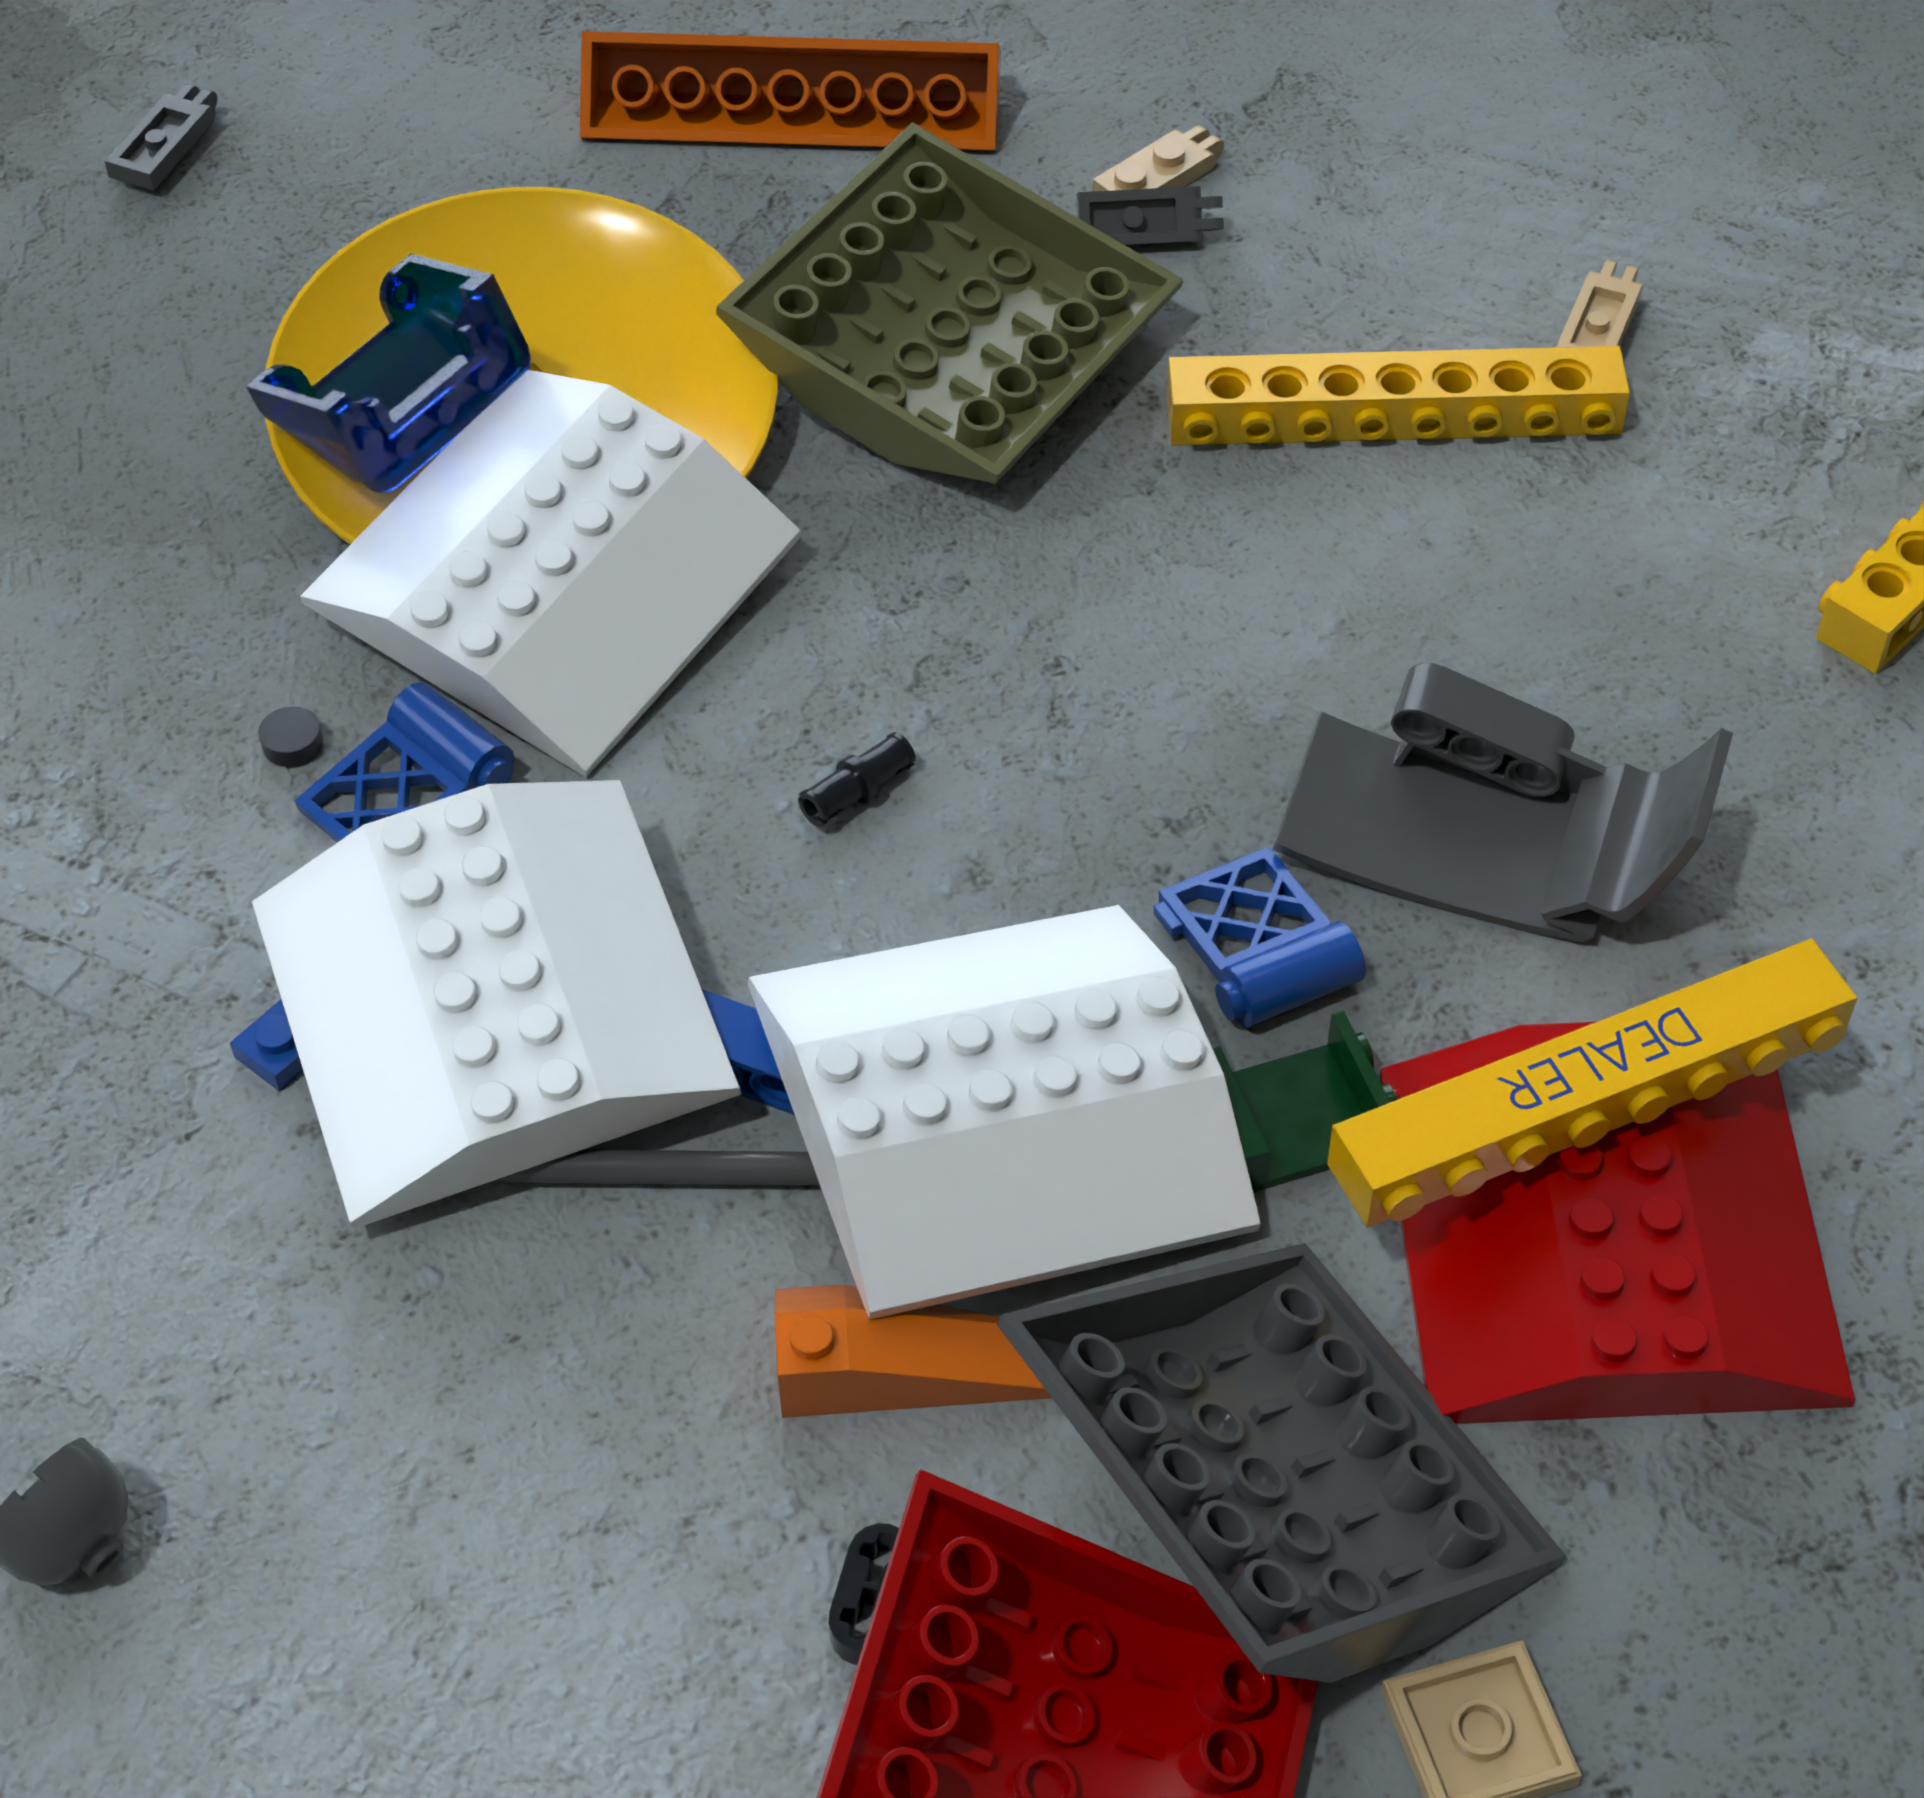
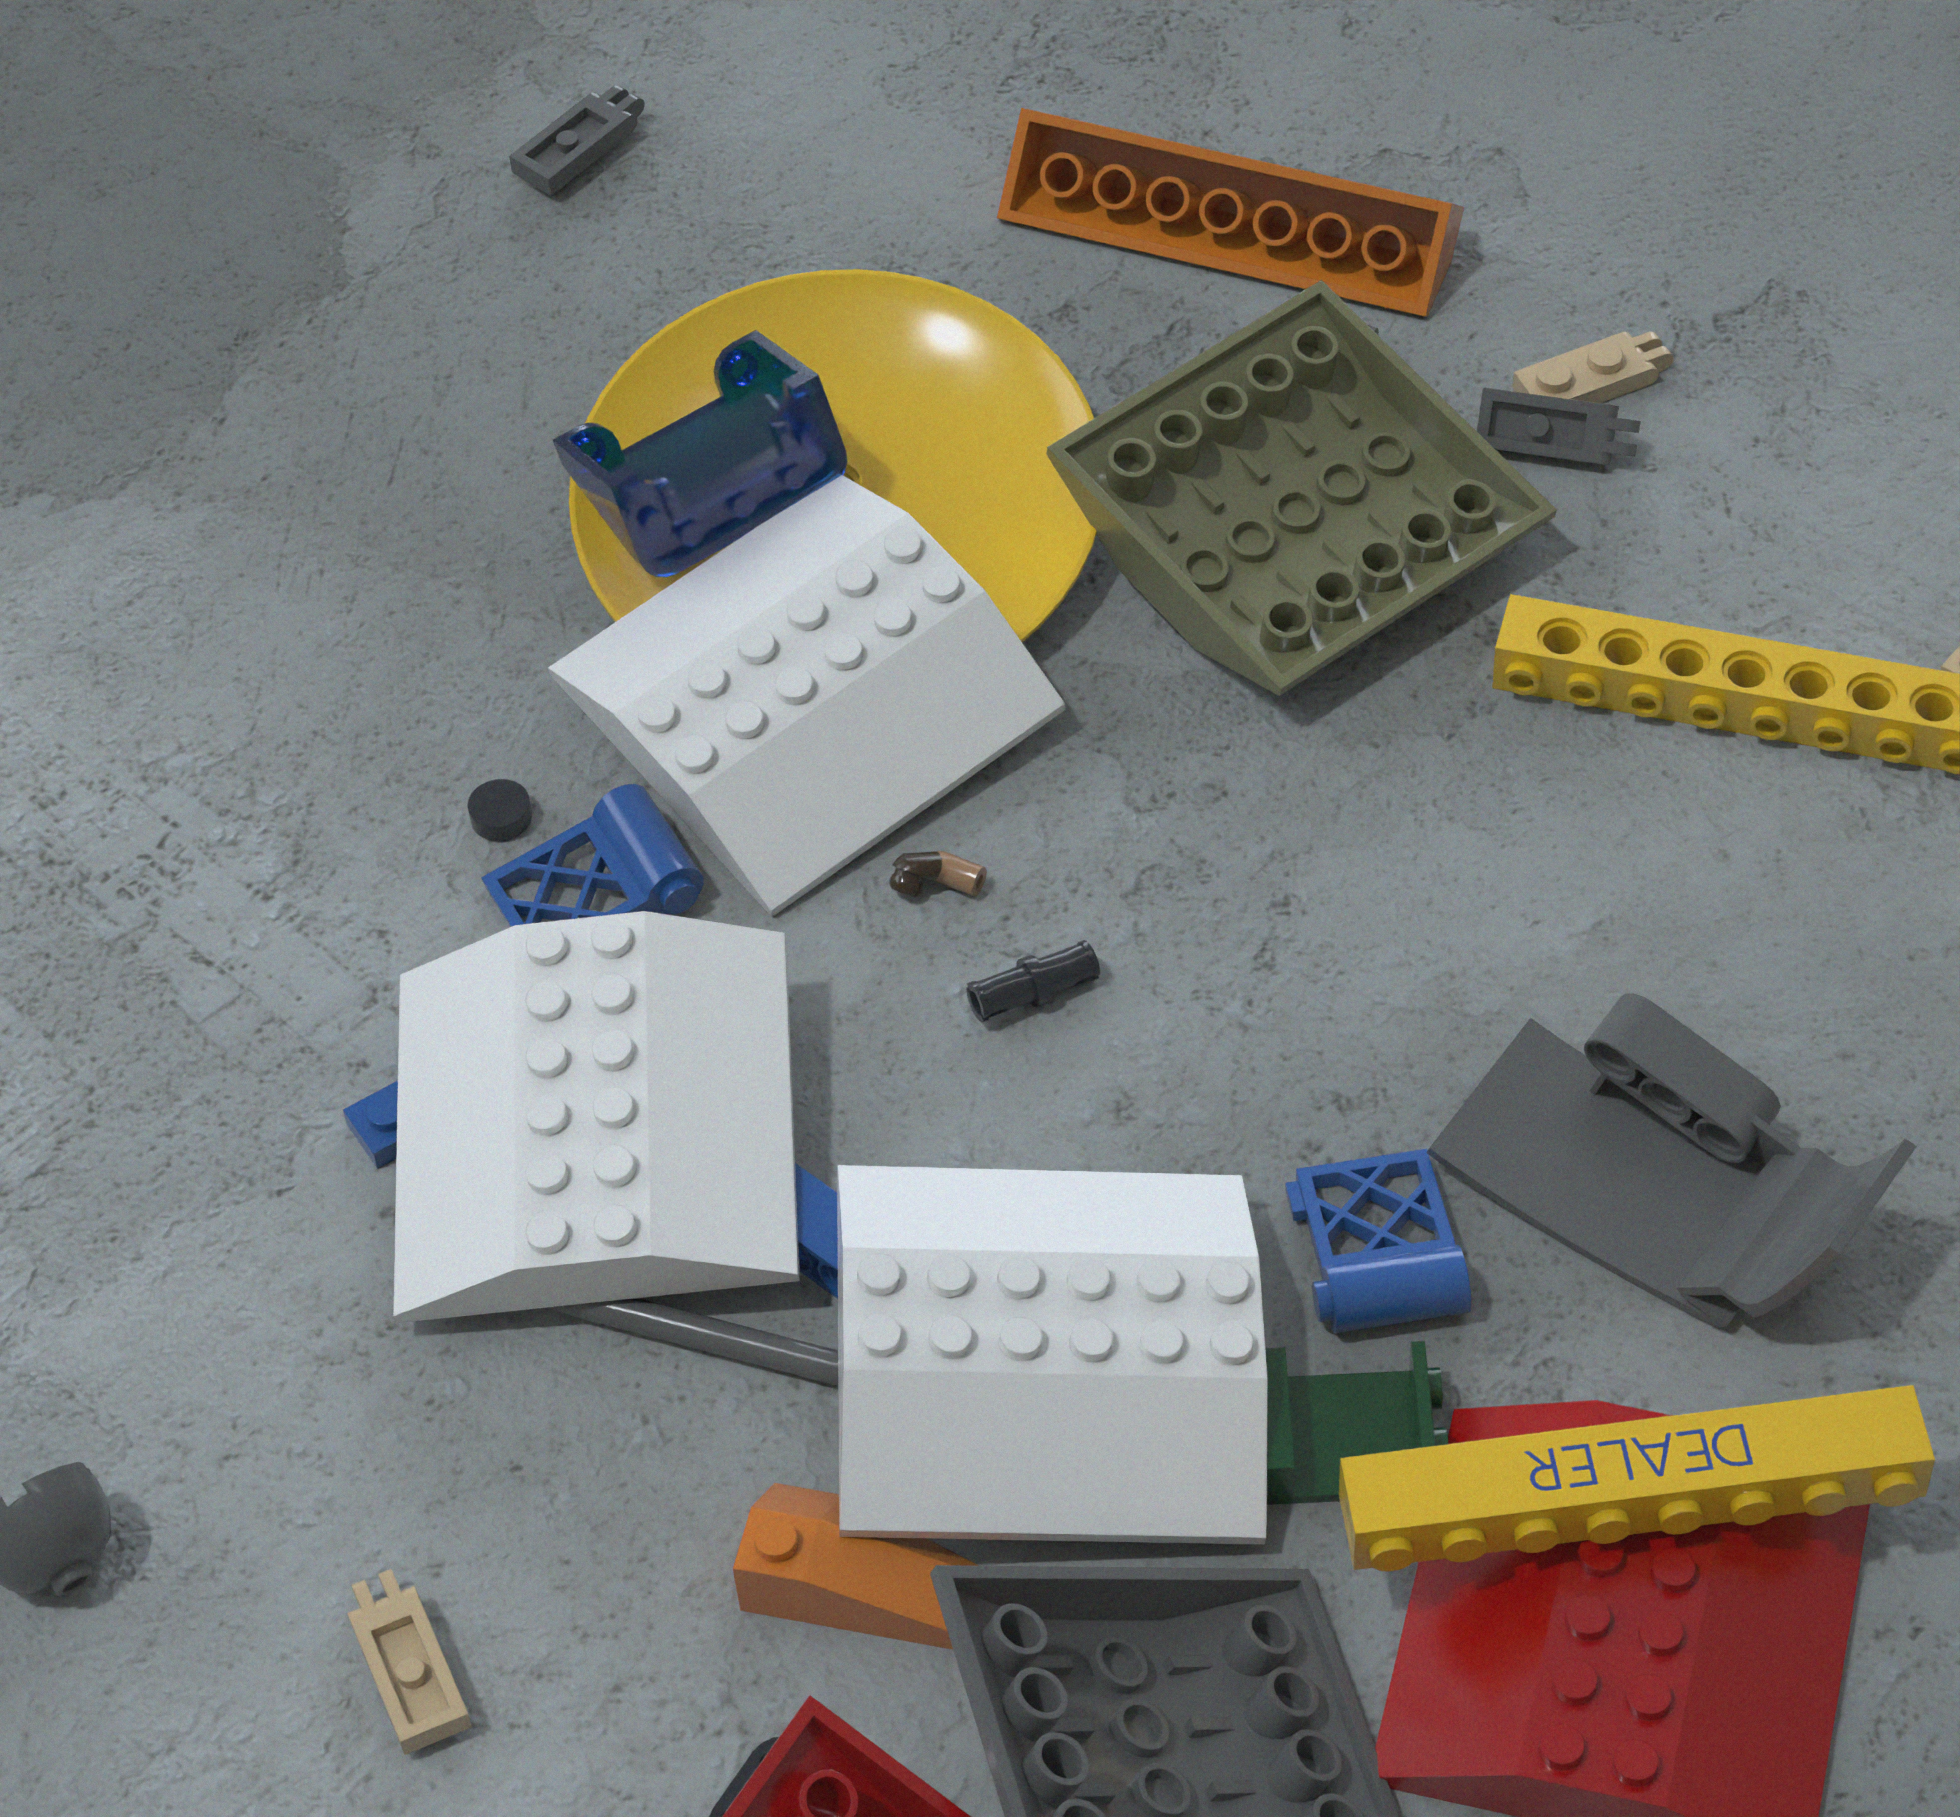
camera: 20 degrees right, 0 degrees up
(474, 1552) = (407, 1665): none -> tan hinge
(733, 699) = (939, 867): none -> arm

